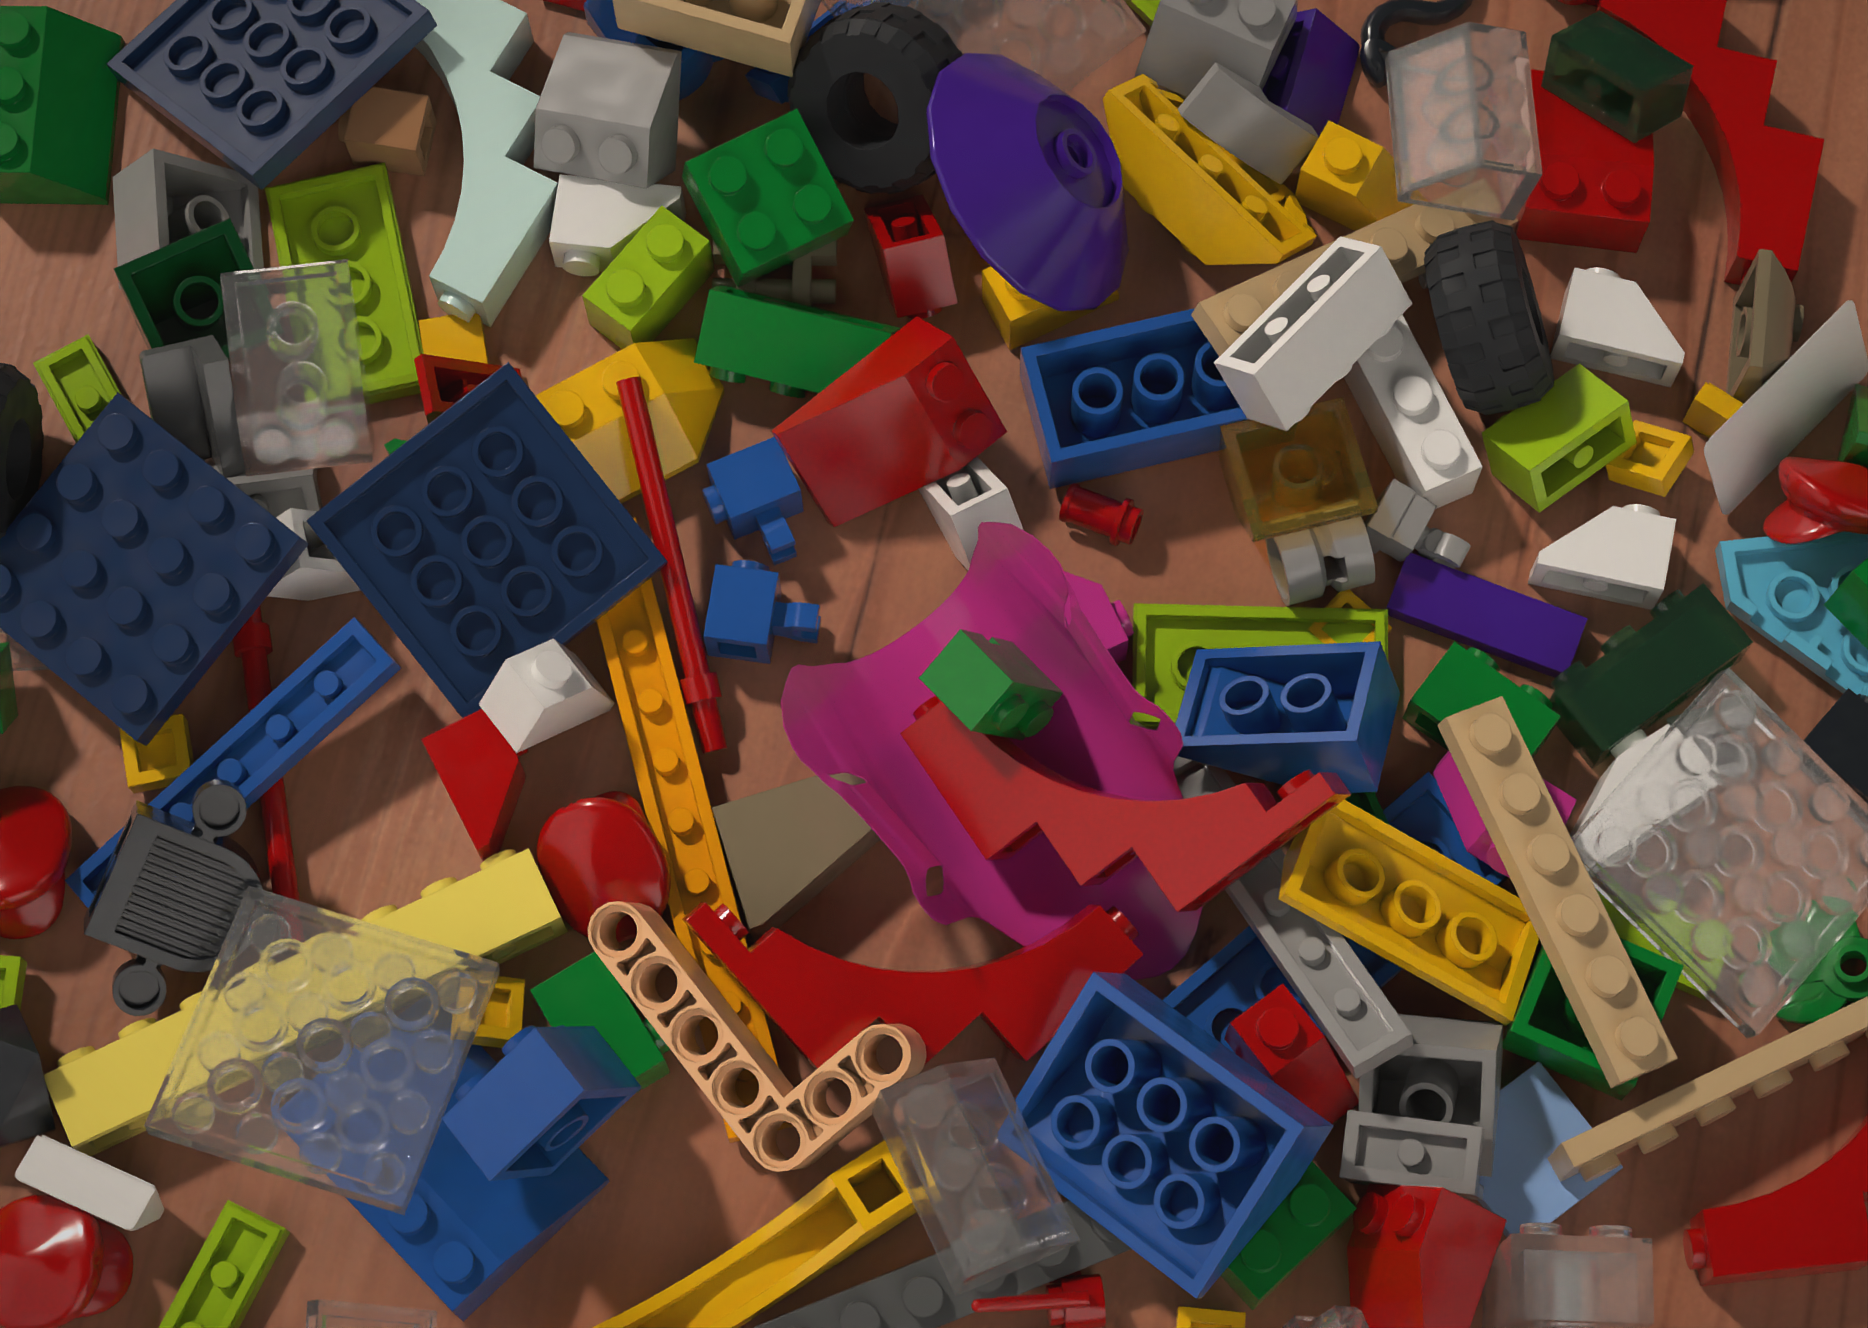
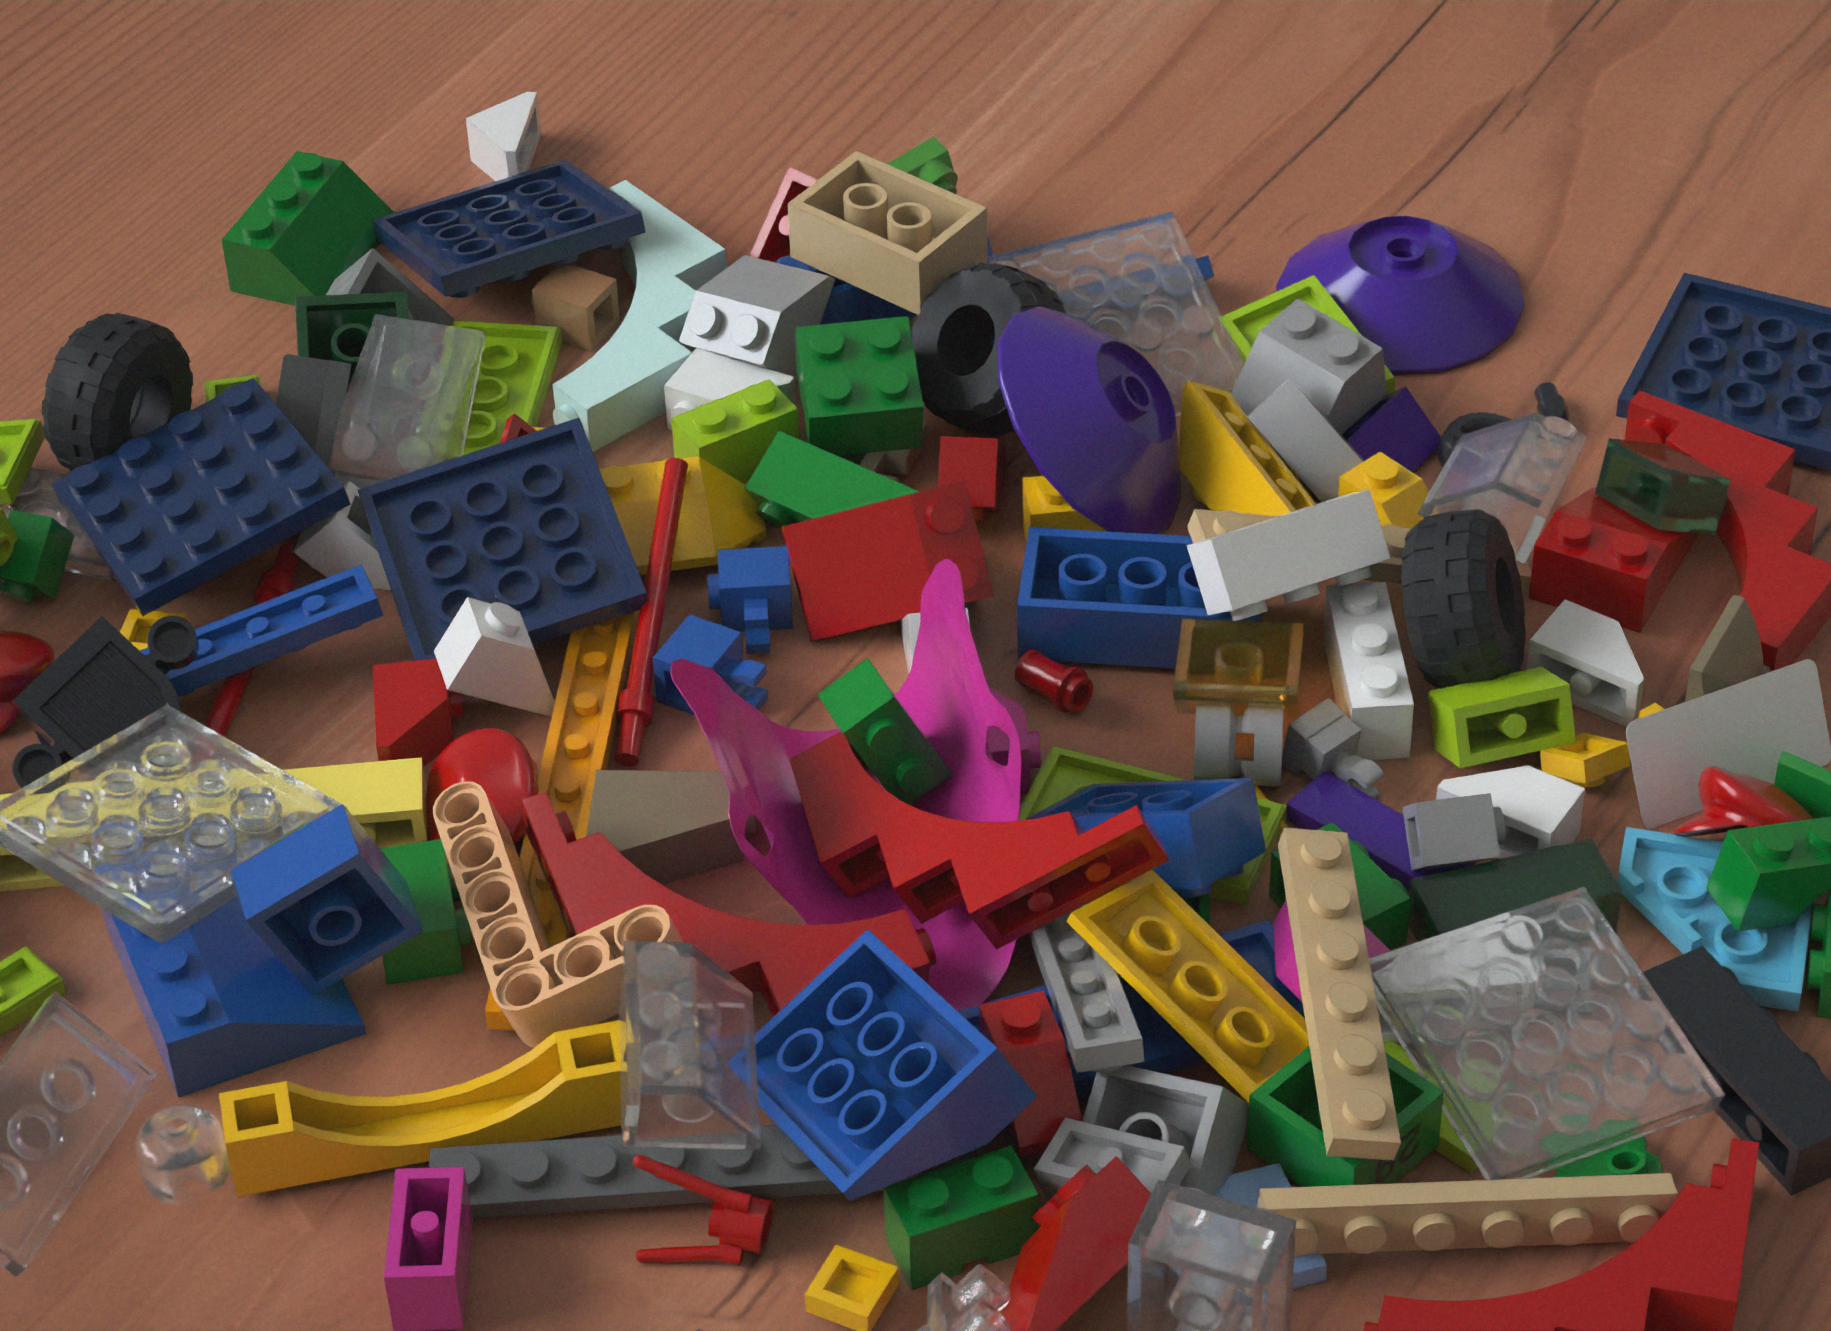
camera: 20 degrees right, 30 degrees down
(1574, 621) = (1453, 831): none -> light grey brick

